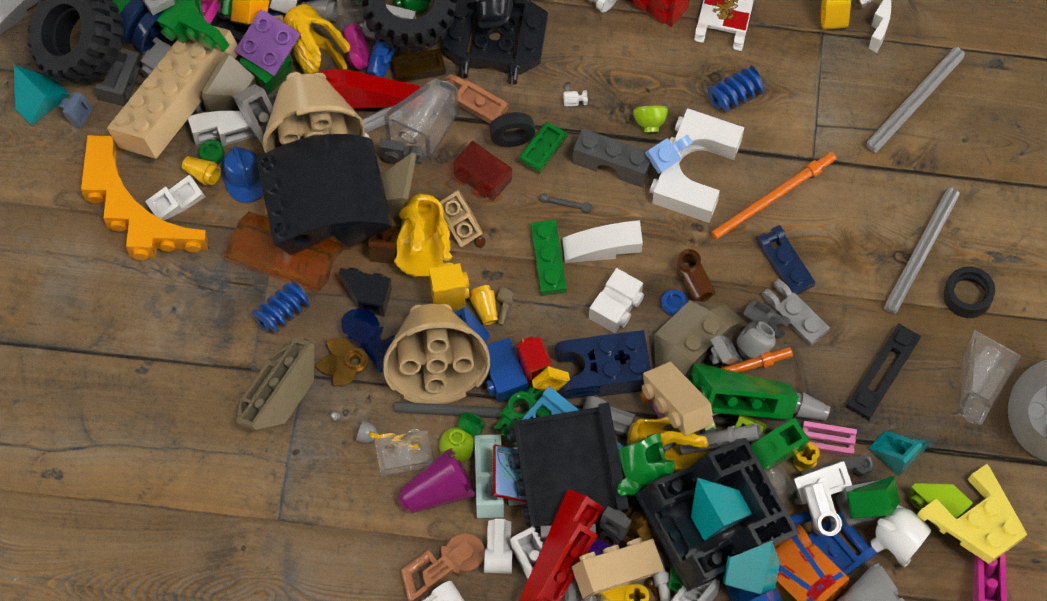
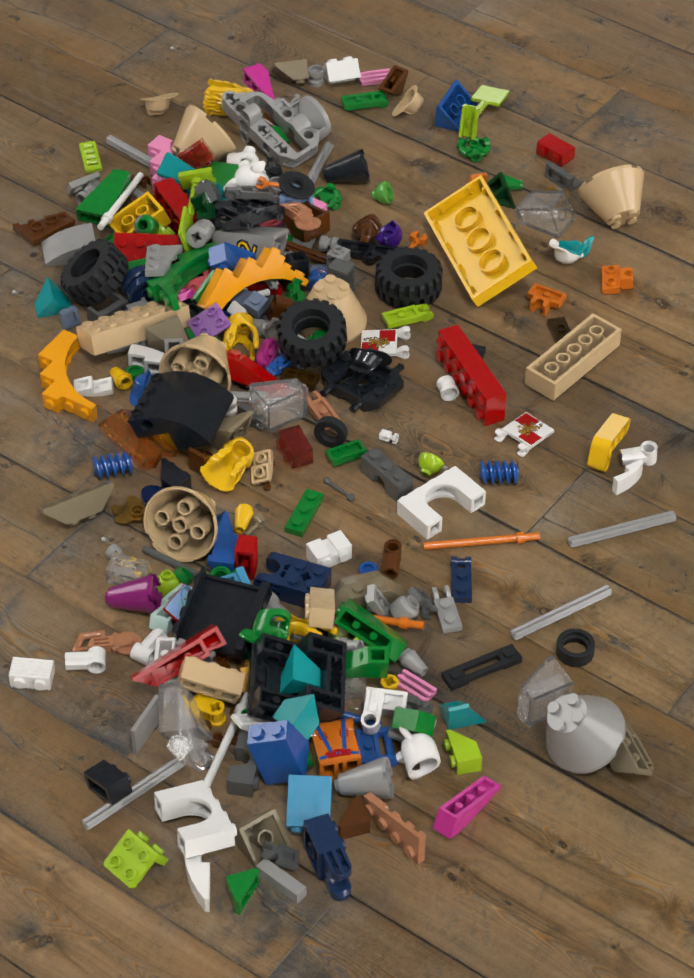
camera: 30 degrees right, 20 degrees down
(449, 285) = (224, 492): yellow brick -> none
(550, 377) = (251, 567): yellow tile -> none
(603, 242) = (346, 517): white slope -> none
(614, 525) = (227, 655): dark grey plate -> none
(666, 153) = (419, 481): light blue plate -> none
(985, 529) = (478, 776): light yellow wing -> none

